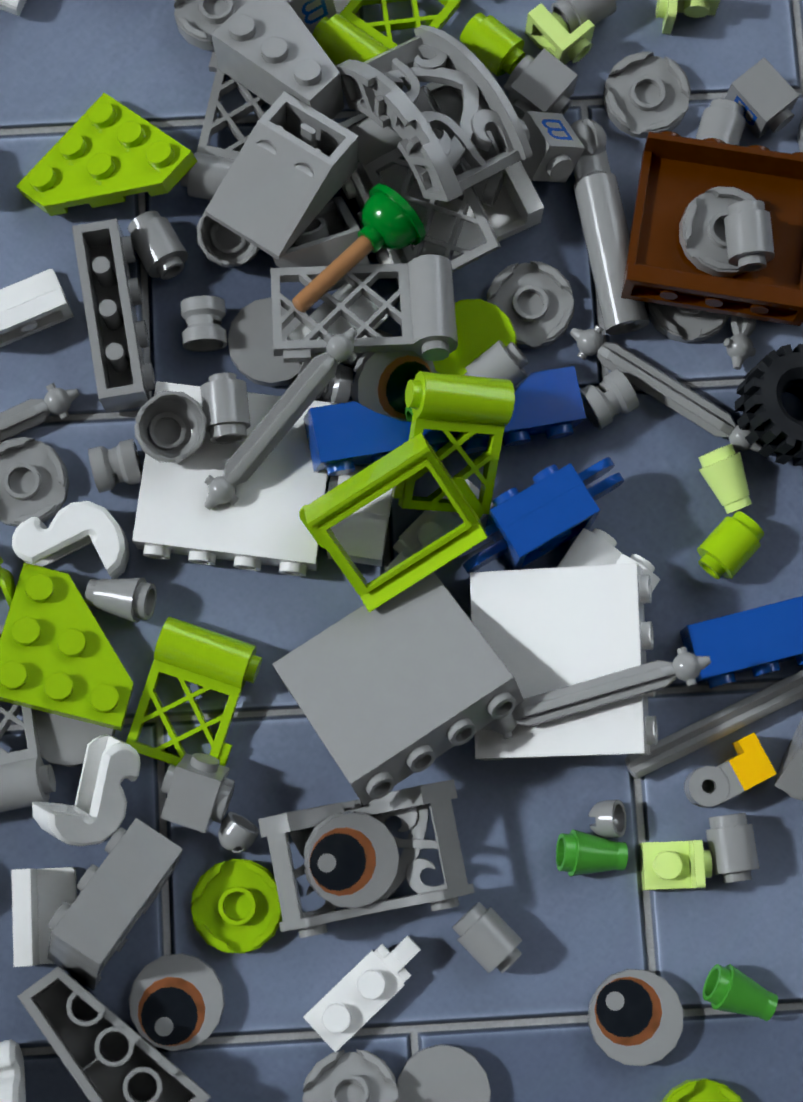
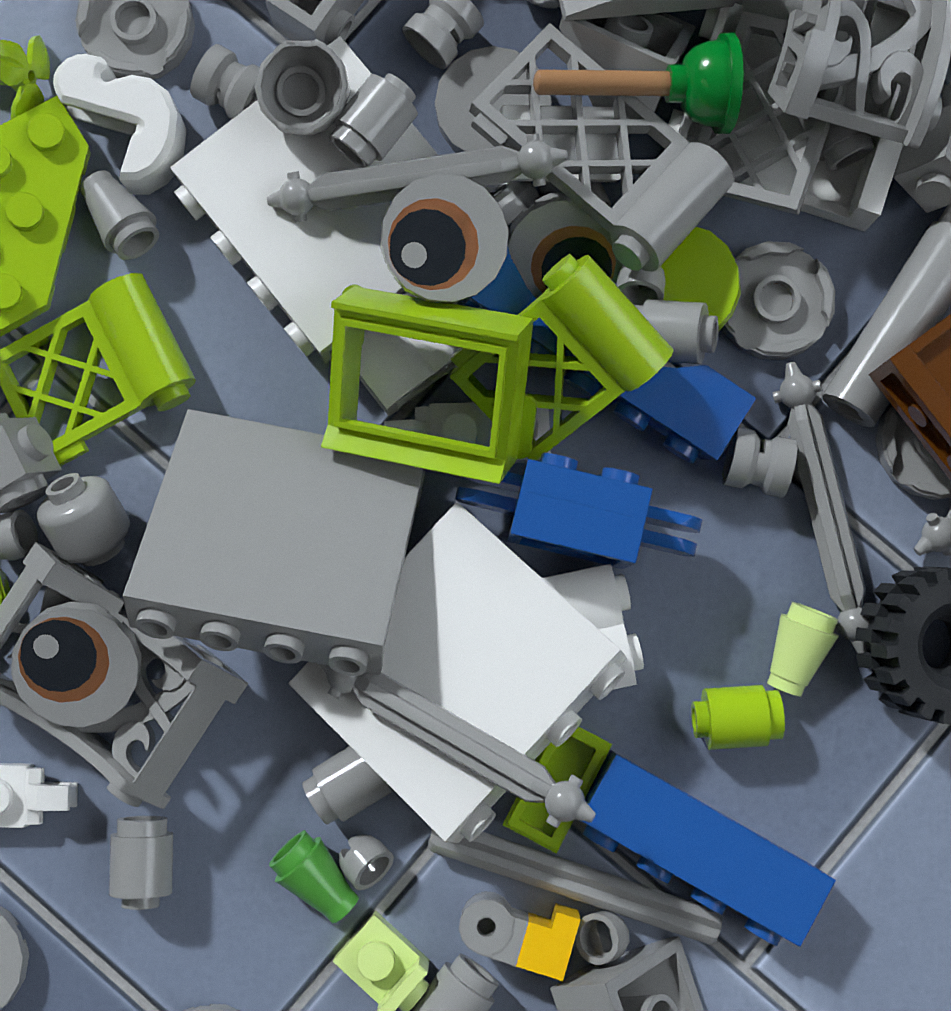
camera: 45 degrees right, 5 degrees up
(272, 781) = (83, 519): none -> light grey head
(333, 434) = (444, 238): none -> tile
(454, 363) = (641, 284): none -> light grey hinge
(558, 784) = (344, 786): none -> light grey brick
(677, 700) = (578, 756): none -> lime tile
(772, 740) = (596, 940): none -> light grey hinge

